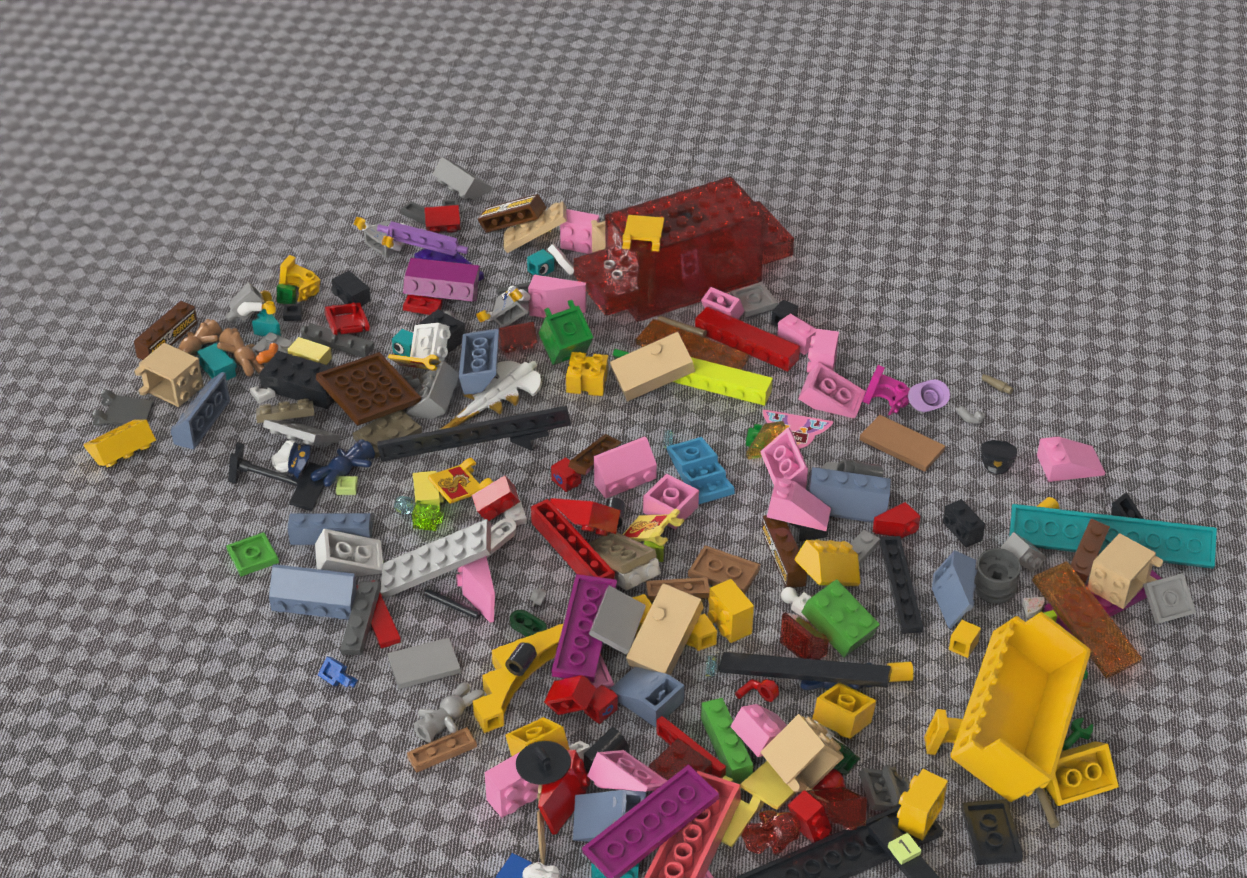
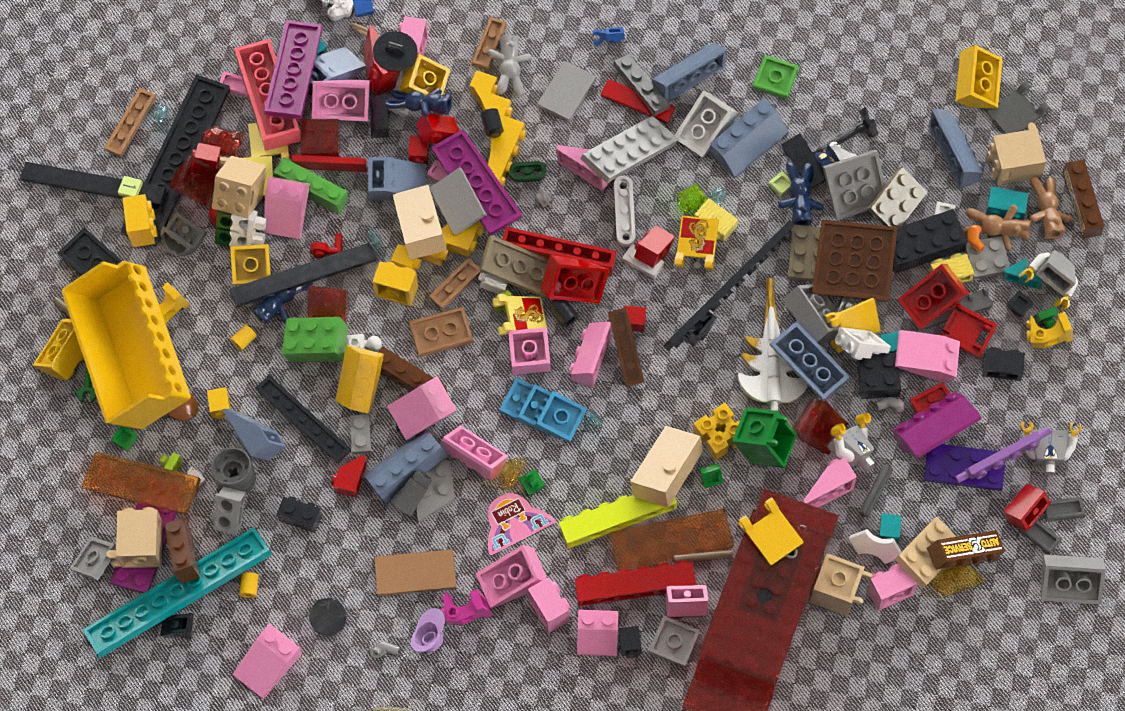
camera: 140 degrees right, 25 degrees up
(343, 335) = (933, 295): none -> red slope
(392, 314) = (928, 355): none -> bright pink slope
(564, 715) = (418, 101): none -> dark blue animal

